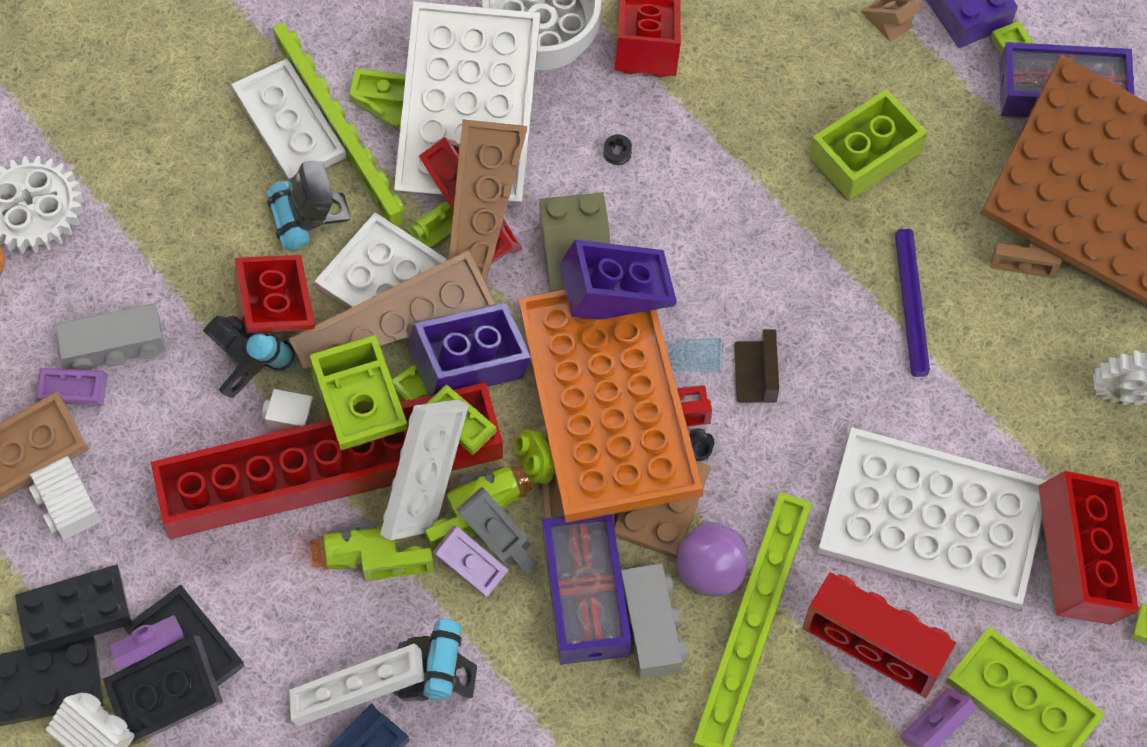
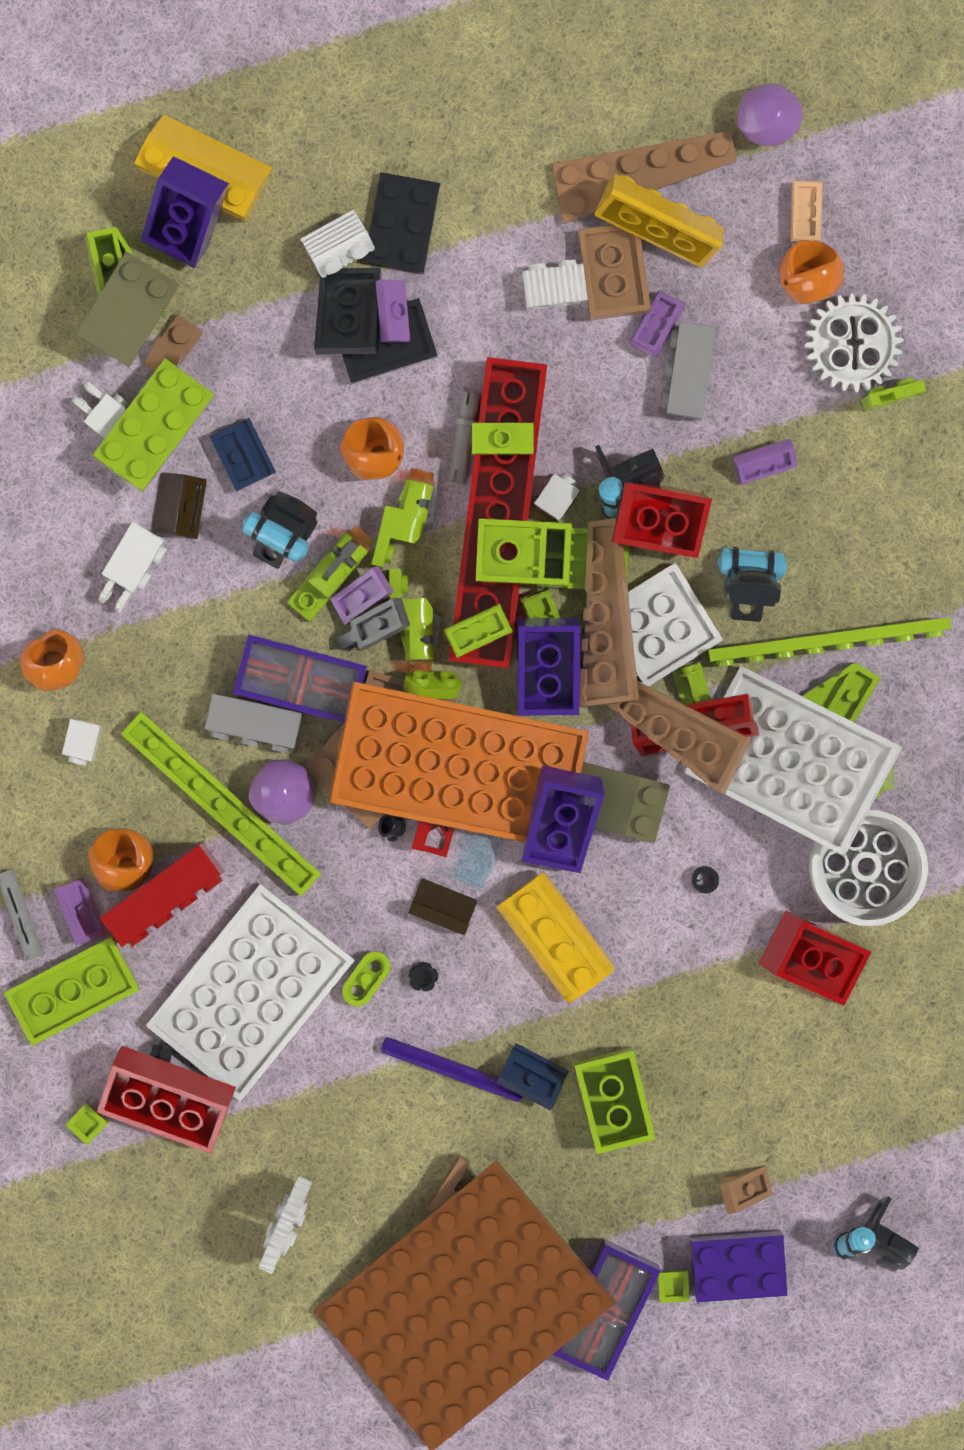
camera: 115 degrees right, 25 degrees up
(72, 609) = (451, 262): black plate -> none
(76, 155) = (905, 389): none -> lime wing
(180, 239) = (765, 461): none -> medium lavender plate
(246, 473) = (502, 439): none -> lime plate
(260, 528) = (463, 437): none -> light grey pin
(287, 118) = (851, 598): white plate -> none
(306, 607) = (372, 448): none -> orange piece
(356, 685) = (289, 464): white plate -> none
(424, 468) = (442, 583): white plate -> none
(459, 602) = (330, 573): none -> lime plate
(738, 252) = (556, 937): none -> yellow container
(835, 353) = (431, 977): none -> black plate
(862, 695) = (121, 859): none -> orange piece
(864, 409) = (366, 978): none -> lime plate
(882, 224) = (532, 1076): none -> dark blue plate
(1040, 579) = (162, 1051): none -> black plate

